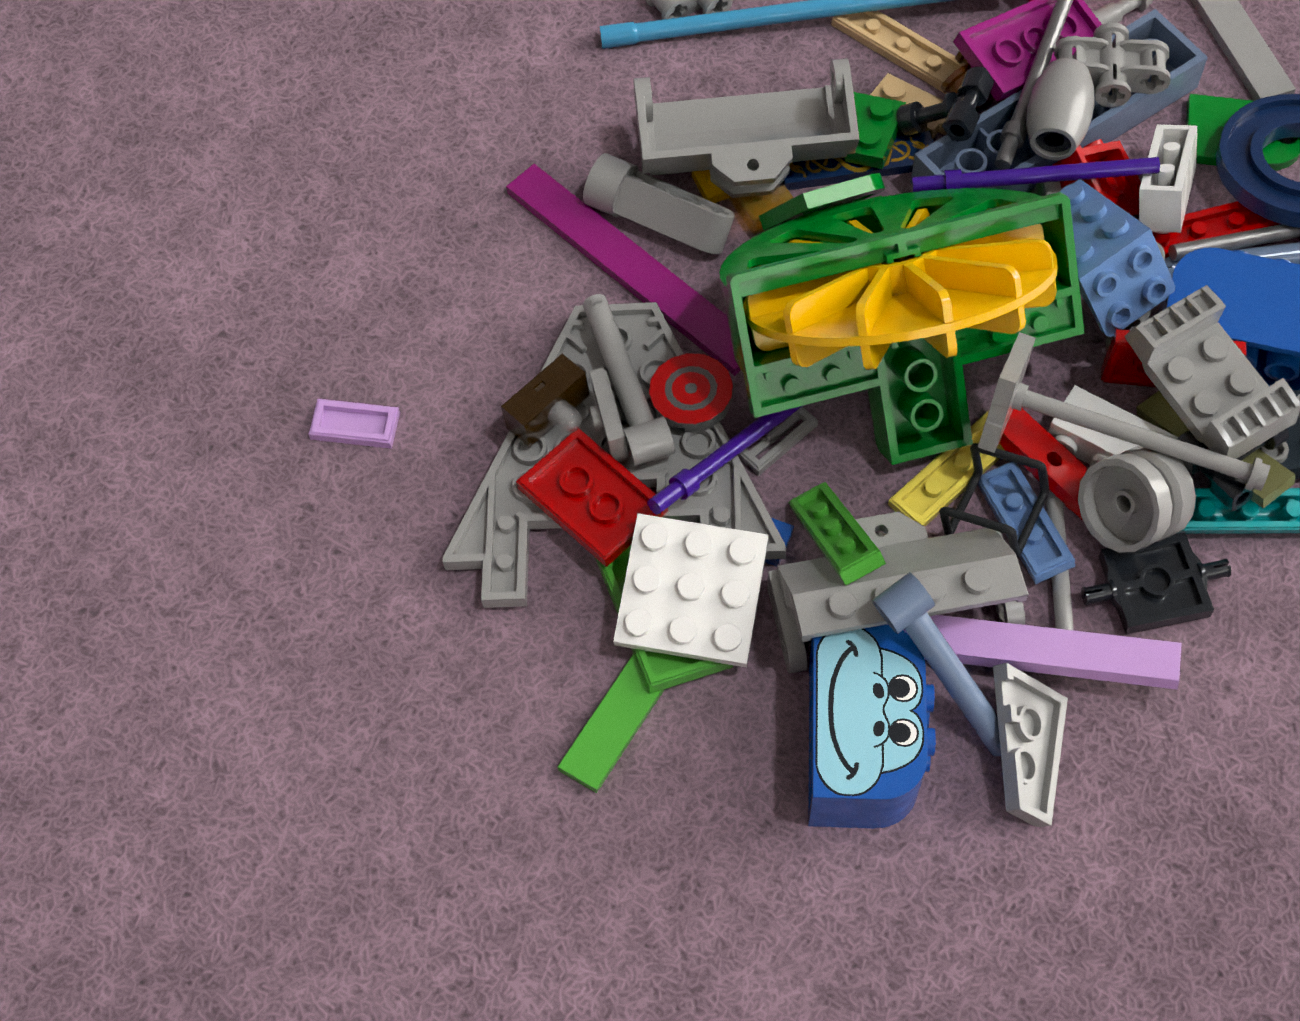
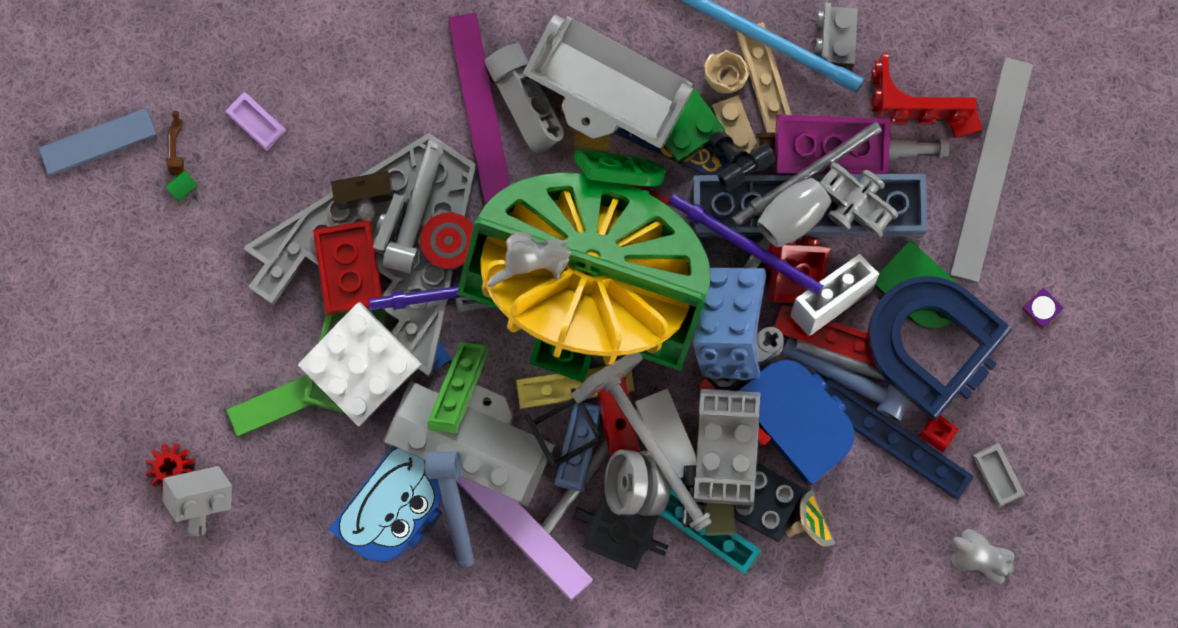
camera: 30 degrees right, 20 degrees up
(167, 564) = (98, 141): none -> sand blue tile
(284, 528) = (174, 163): none -> reddish brown piece
(311, 545) = (181, 186): none -> green hinge
(517, 891) = (162, 462): none -> red gear
(600, 889) = (197, 495): none -> light grey brick
(828, 259) = (527, 255): none -> light grey animal
(865, 55) = (735, 78): none -> tan hair
(1030, 743) = (476, 572): light grey wing -> none

